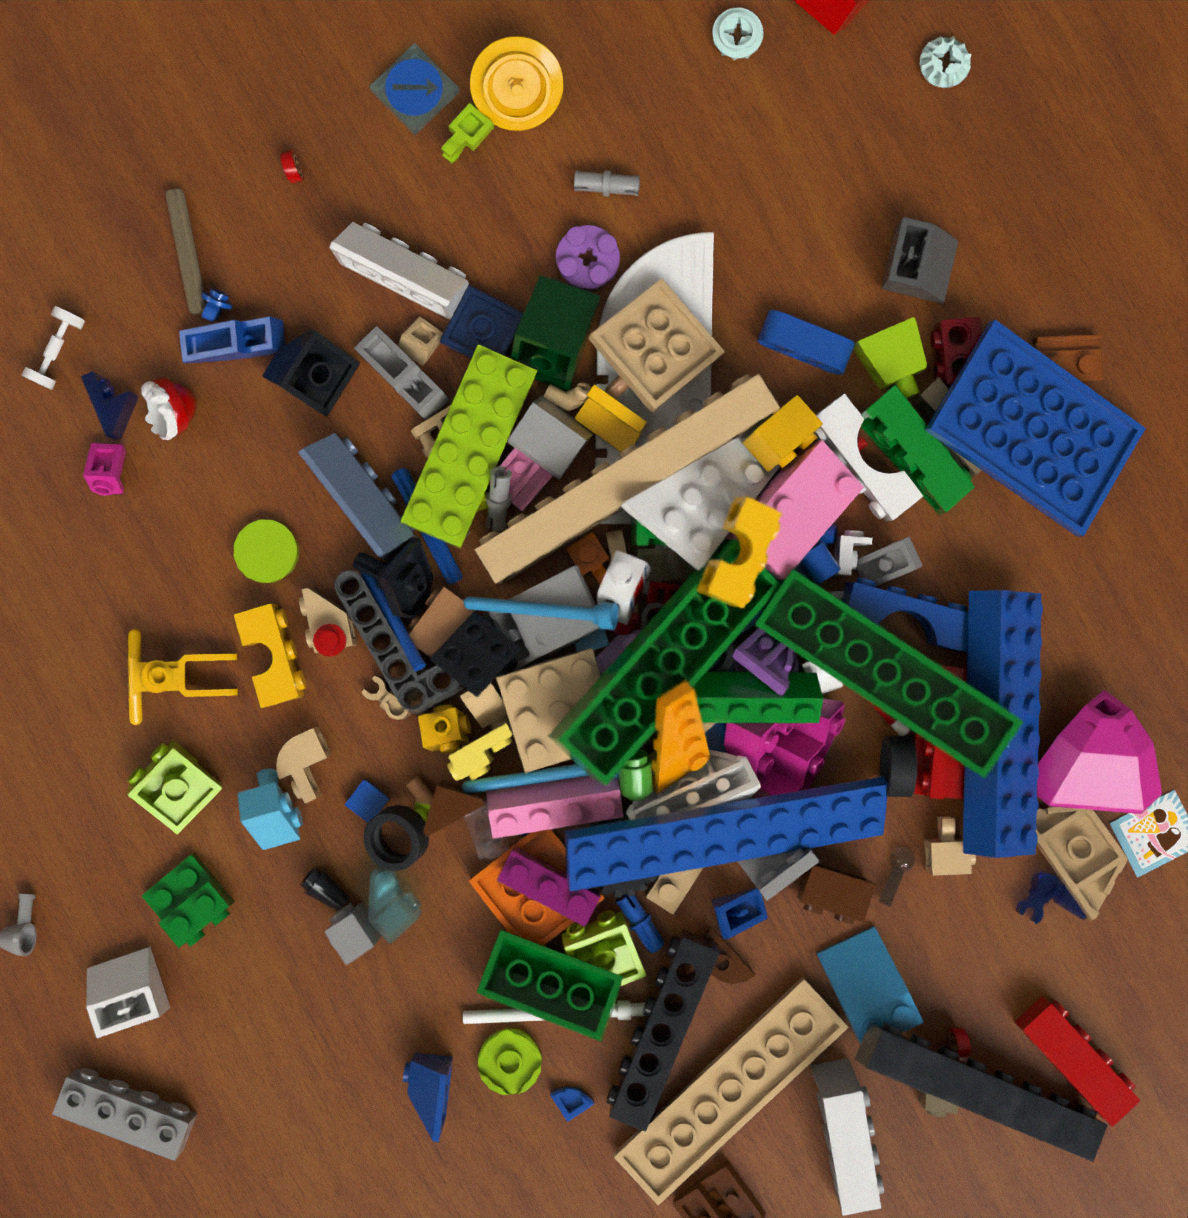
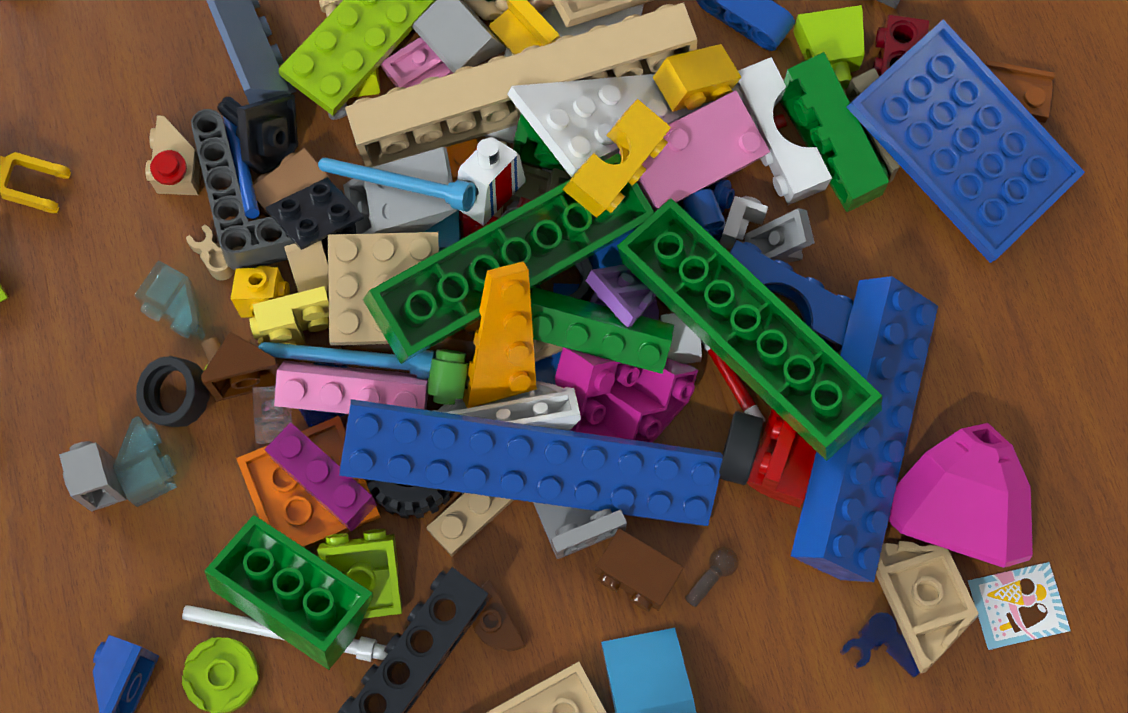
camera: 15 degrees right, 15 degrees down
(266, 551) = (135, 80): lime tile -> none
(269, 812) = (45, 330): medium azure brick -> none
(282, 679) = (105, 205): yellow arch -> none
(297, 757) = (95, 286): tan brick -> none
(324, 888) = (76, 424): black cone -> none
(367, 800) = (153, 347): blue tile -> none
(369, 752) = (171, 297): none -> clear light blue slope
(437, 547) = (310, 110): blue axle -> none
(498, 498) = (388, 74): light grey pin -> none
(640, 922) = (412, 553): blue axle -> none
(739, 911) = (525, 568): blue slope -> none
(945, 853) = (772, 560): tan brick -> none

